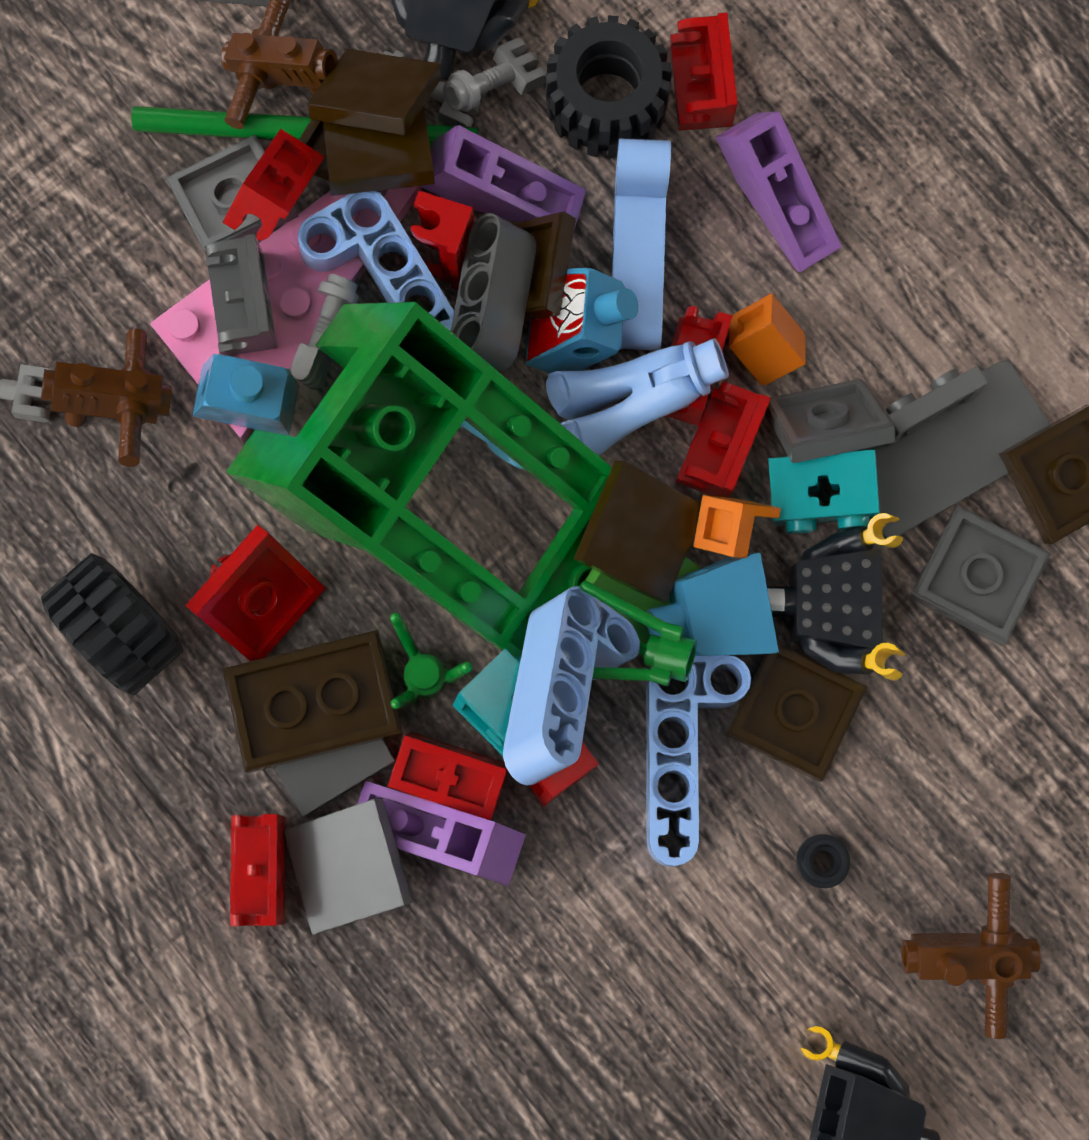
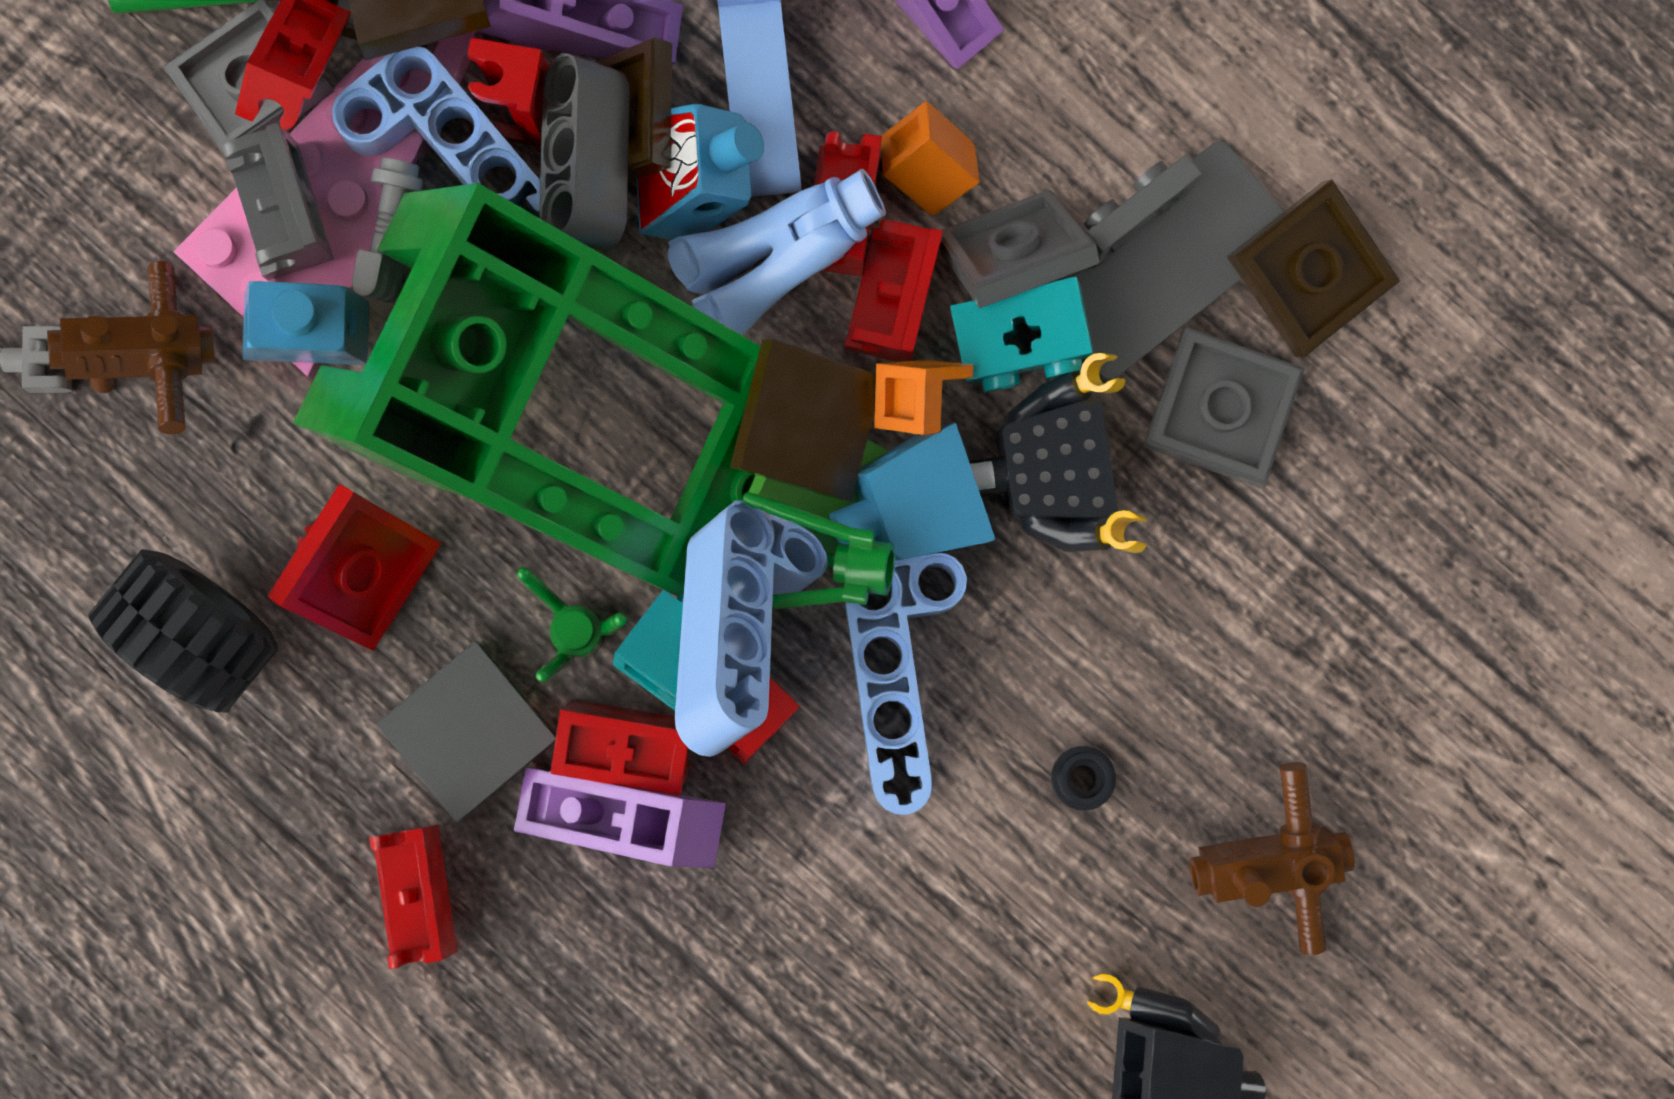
camera: 10 degrees left, 5 degrees up
(311, 701) = (444, 684): dark brown tile -> none
(347, 866) = (519, 874): tile -> none
(796, 712) = (1027, 605): dark brown tile -> none

